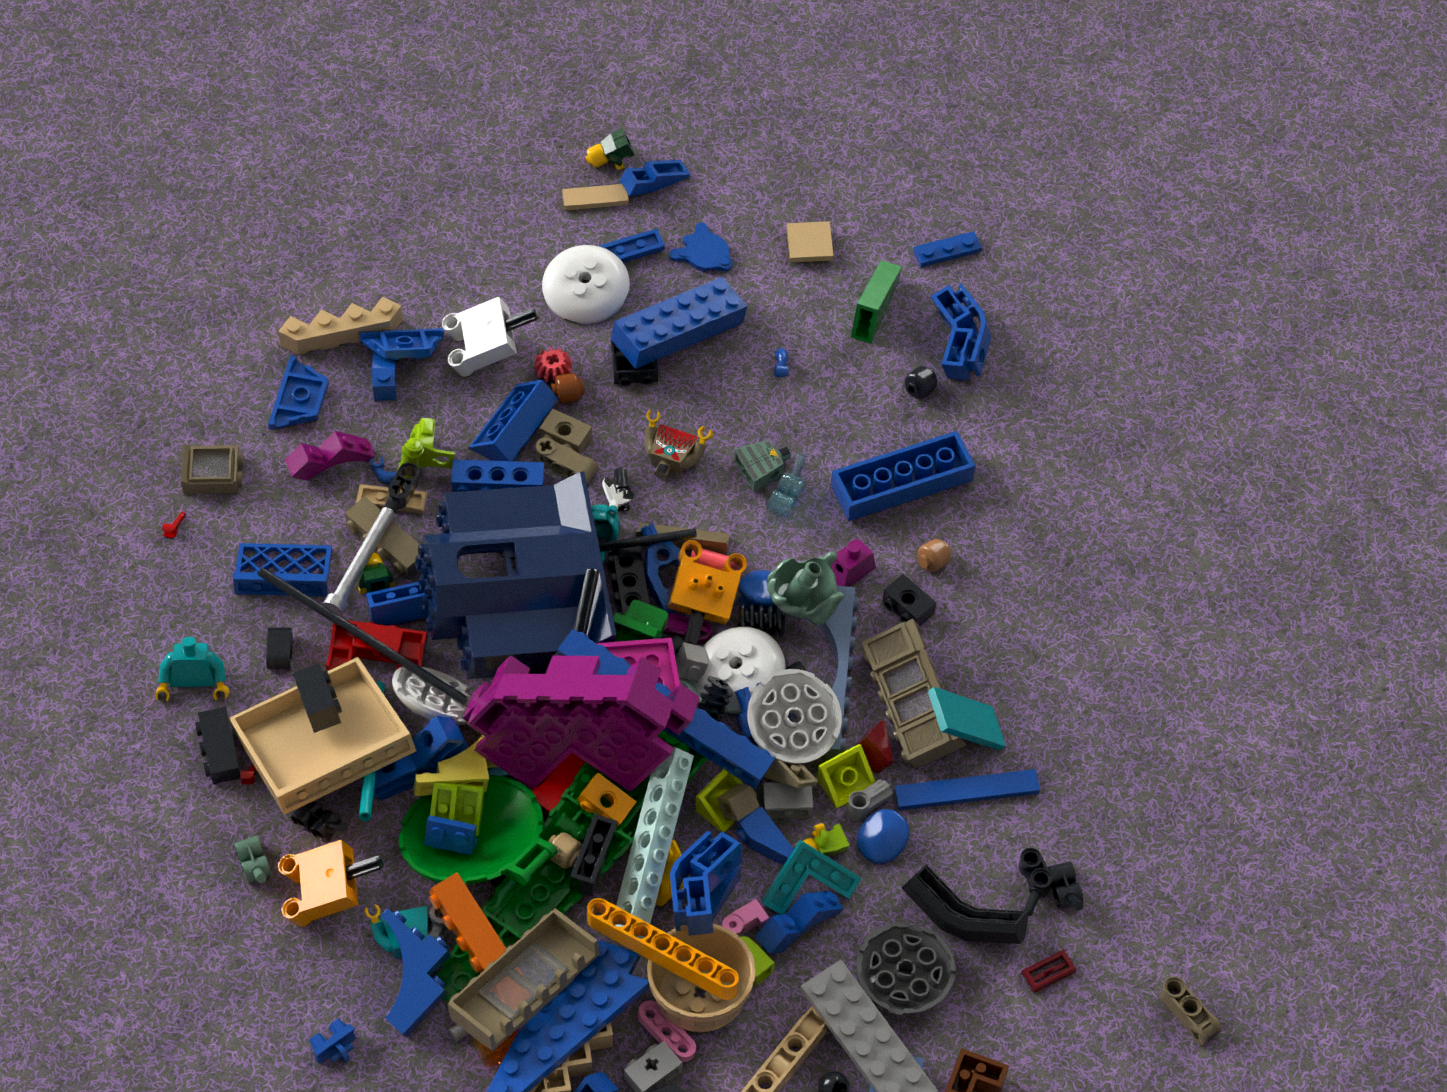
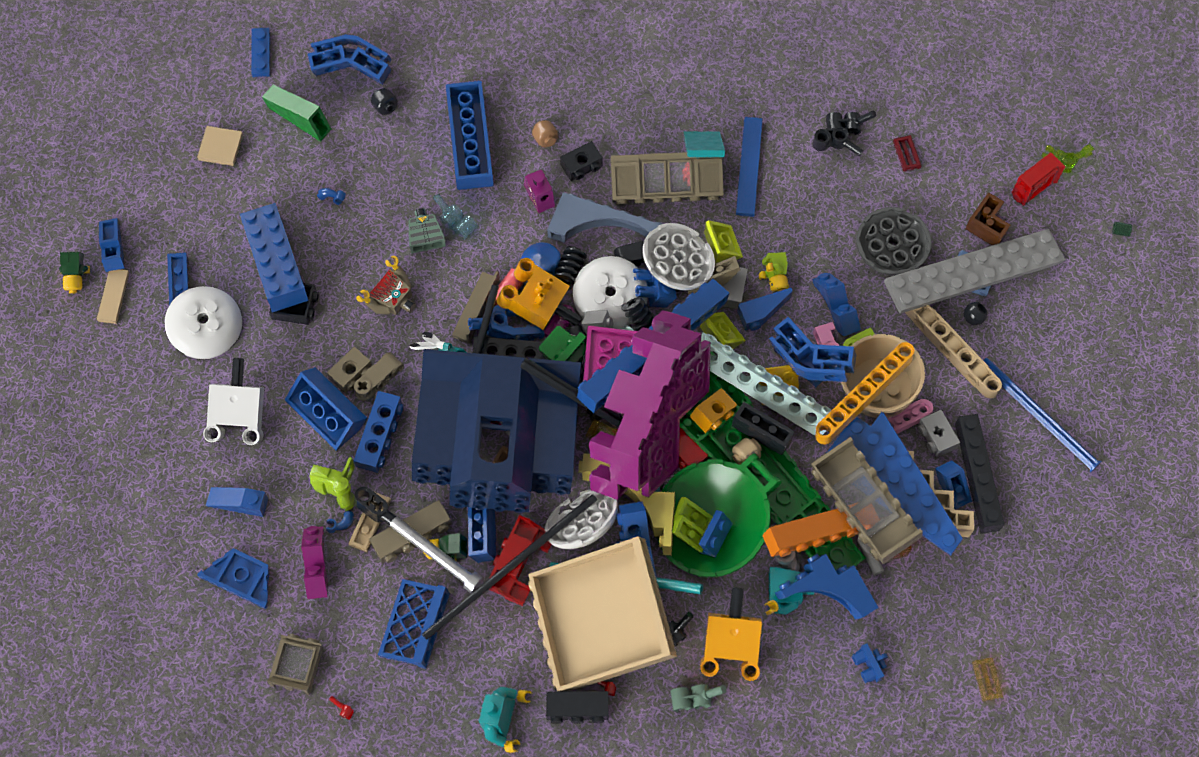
camera: 75 degrees left, 10 degrees up
(279, 648) = (494, 639): black beam -> none
(318, 697) = (569, 609): black brick -> none
(330, 331) = (183, 536): tan brick -> none
(403, 343) = (218, 478): blue wing -> none
(551, 364) = (279, 371): coral gear -> none
(568, 388) = (306, 357): dark orange head -> none
(571, 827) = (731, 440): green pin -> none
(621, 484) = (408, 339): black axle -> none
(704, 250) = (198, 225): blue tile -> none
(738, 802) = (731, 319): dark tan brick -> none
(804, 862) = (796, 284): teal plate -> none
(806, 588) = (566, 219): sand green piece -> none
(869, 800) = (744, 231): light grey piece -> none
(877, 747) = (698, 214): dark red slope -> none
(883, 836) = (778, 230): blue piece -> none
(961, 918) = (859, 193): black piece -> none
(1200, 1023) = (948, 78): dark tan piece -> none

